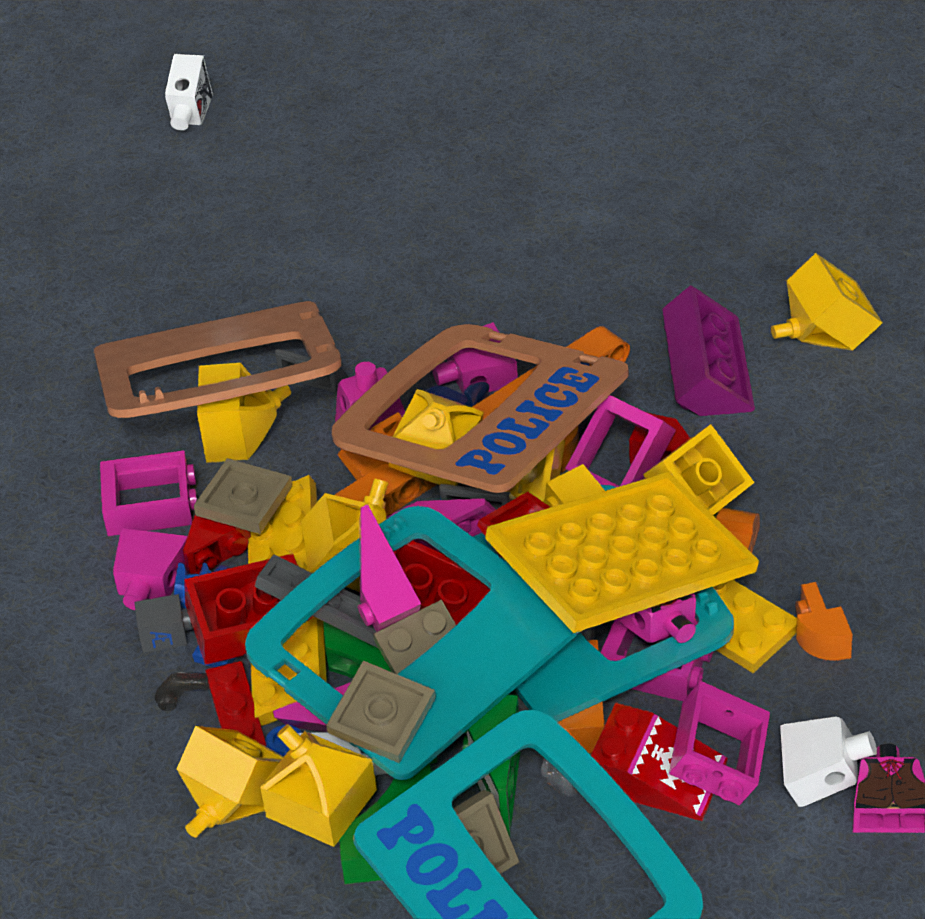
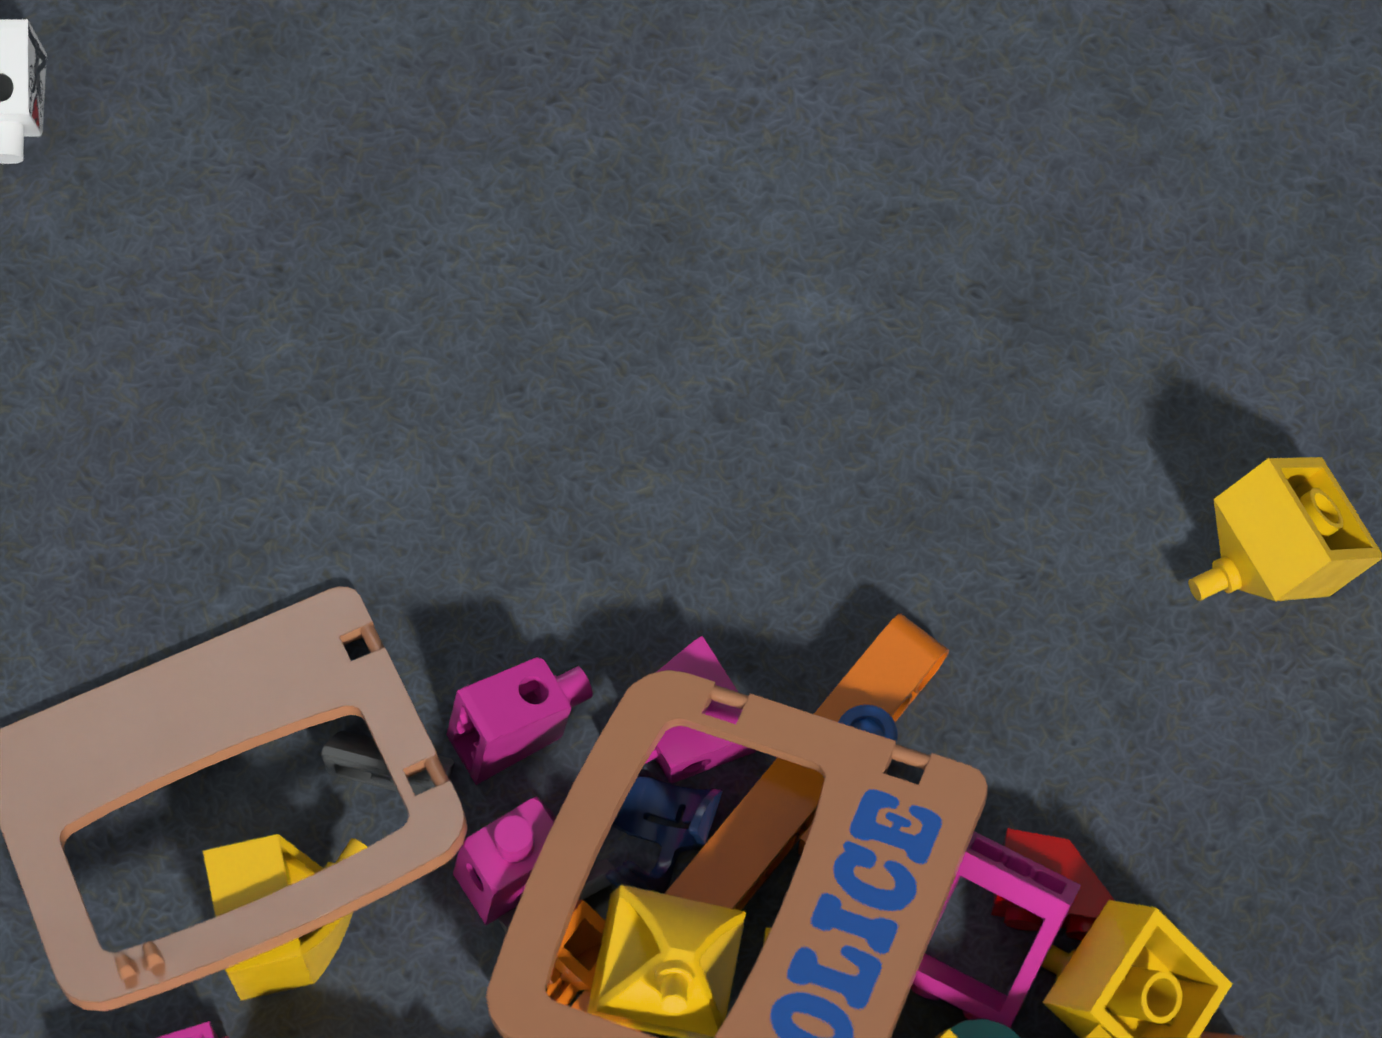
camera: 15 degrees left, 25 degrees up
(381, 341) = (513, 715): none -> dark pink torso
(706, 356) = (1087, 658): magenta slope -> none

